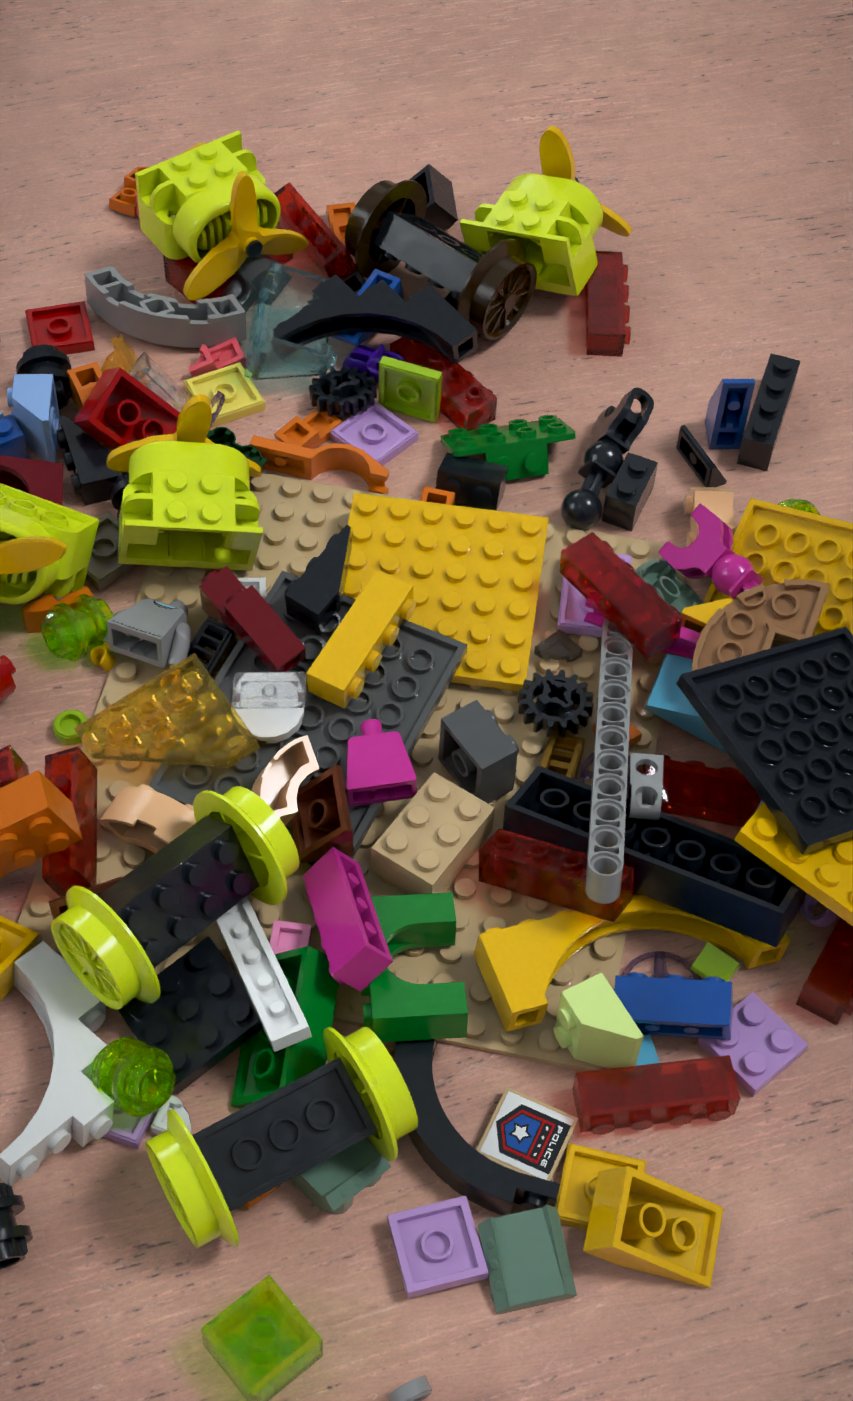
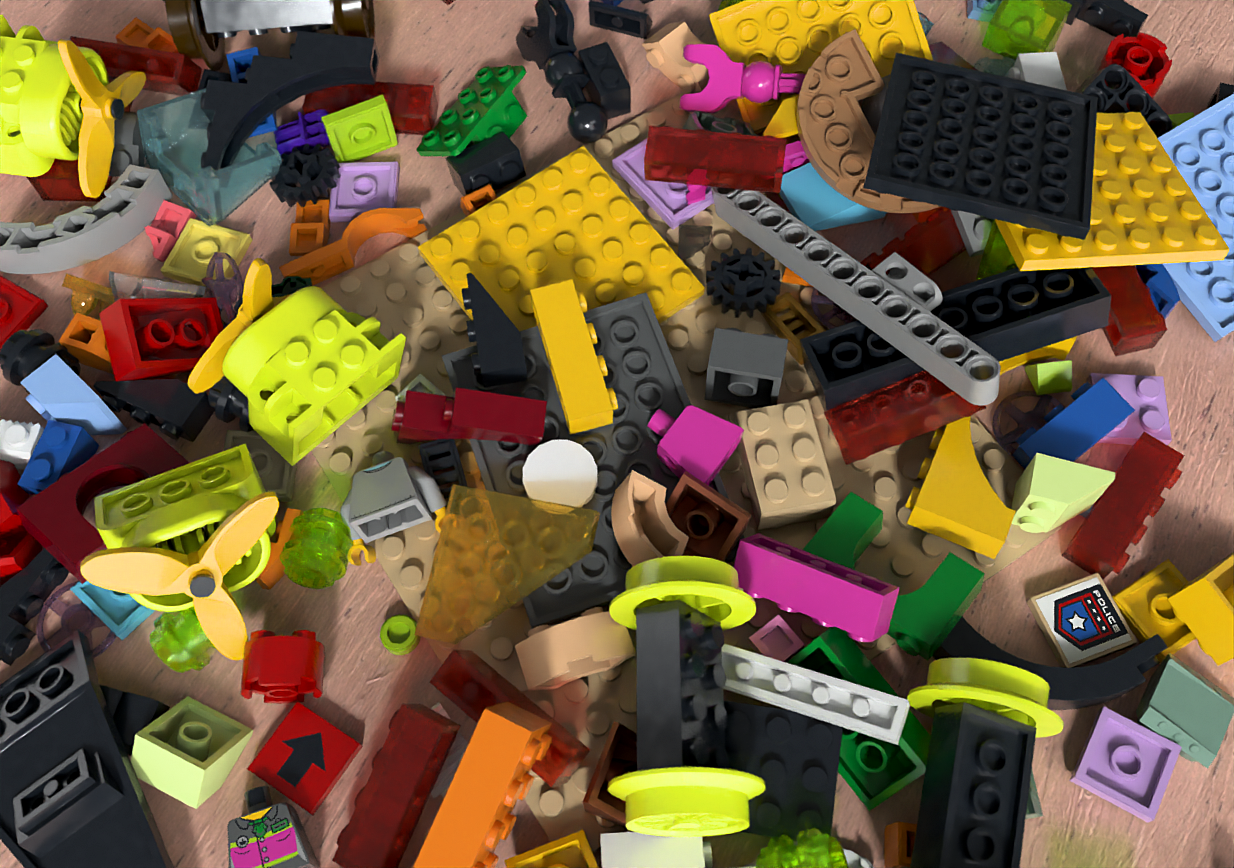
camera: 40 degrees left, 10 degrees up
(269, 690) = (555, 461): clear slope -> none

